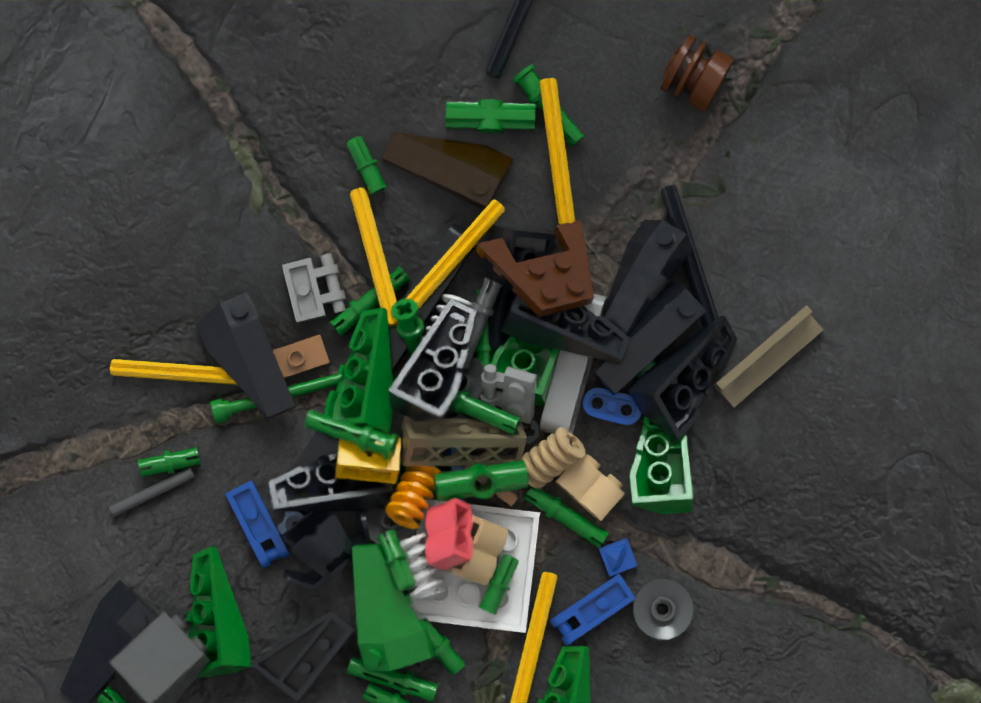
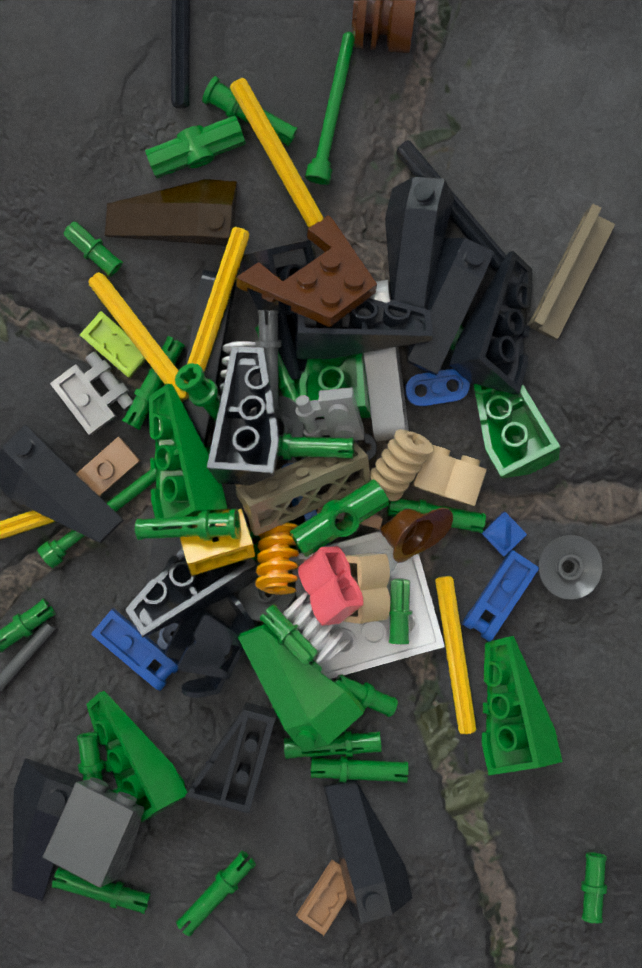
camera: 25 degrees left, 5 degrees up
(178, 598) = (90, 764): none -> green pin
(350, 254) = (113, 344): none -> lime plate
(541, 521) = (415, 531): none -> reddish brown piece
(588, 178) = (319, 169): none -> green piece

